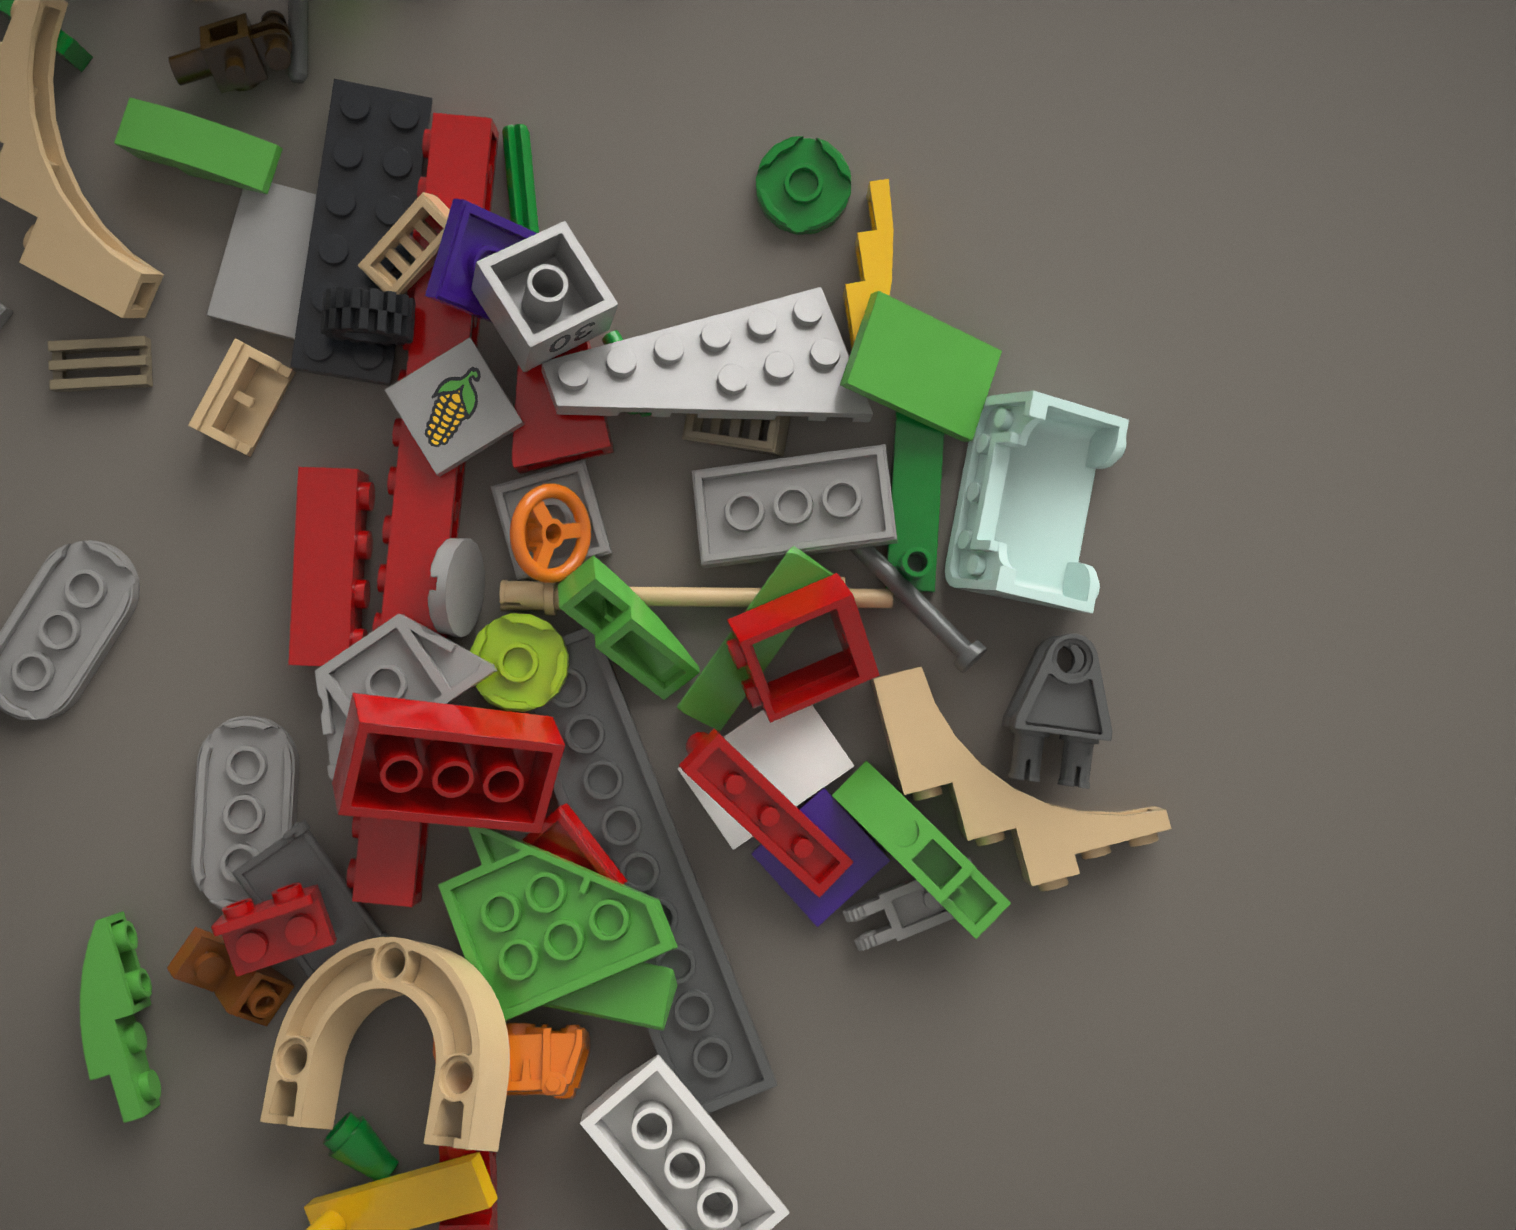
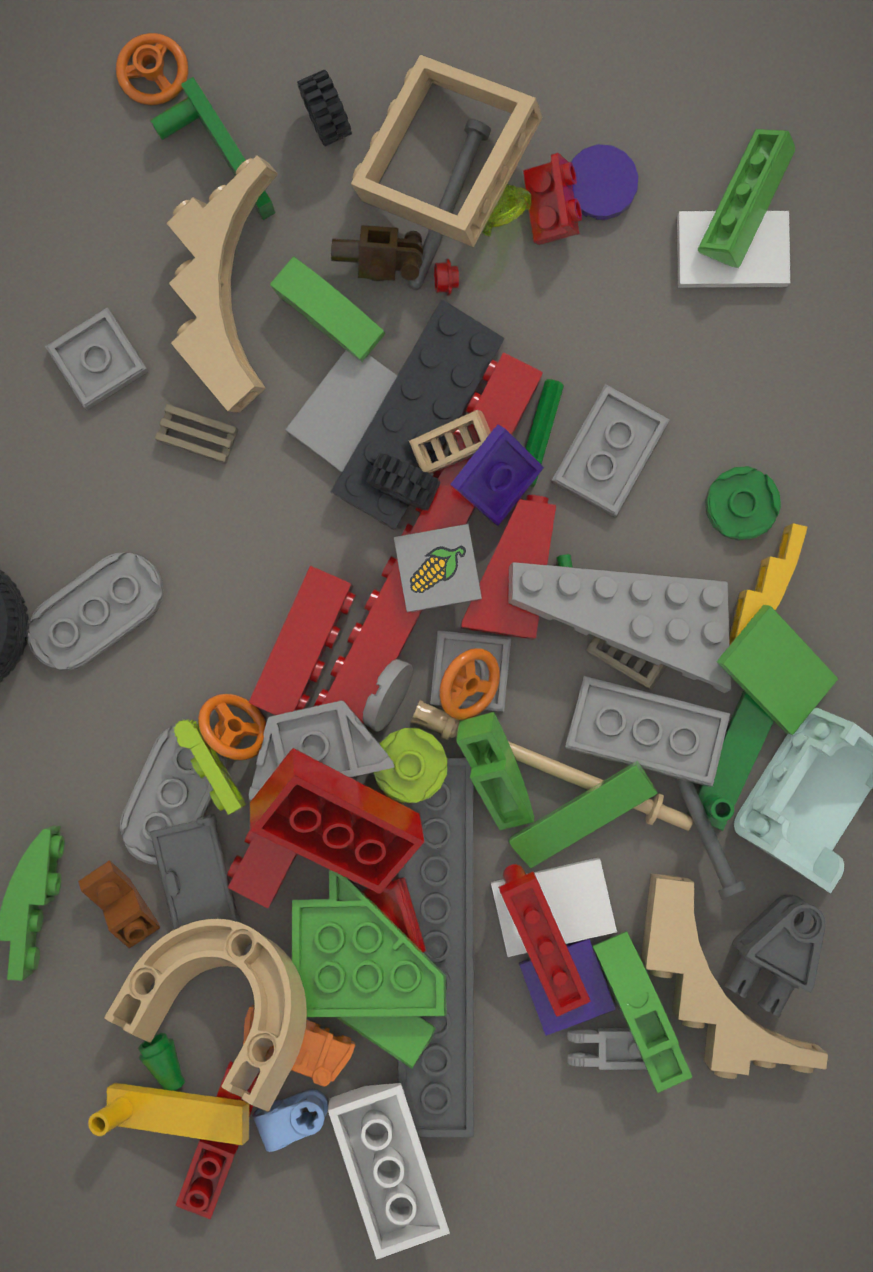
camera: 25 degrees right, 0 degrees up
(242, 398) = (287, 498): tan hinge -> none
(271, 760) = (209, 765): none -> lime hinge
(275, 929) = (166, 885): red bracket -> none
(281, 707) = (230, 728): none -> orange piece
(331, 51) = (445, 277): none -> red plate
(541, 1157) = (287, 1121): none -> light blue piece
(543, 296) = (534, 518): light grey brick -> none
(618, 182) = (610, 450): none -> light grey tile
(818, 679) = (616, 862): red window -> none

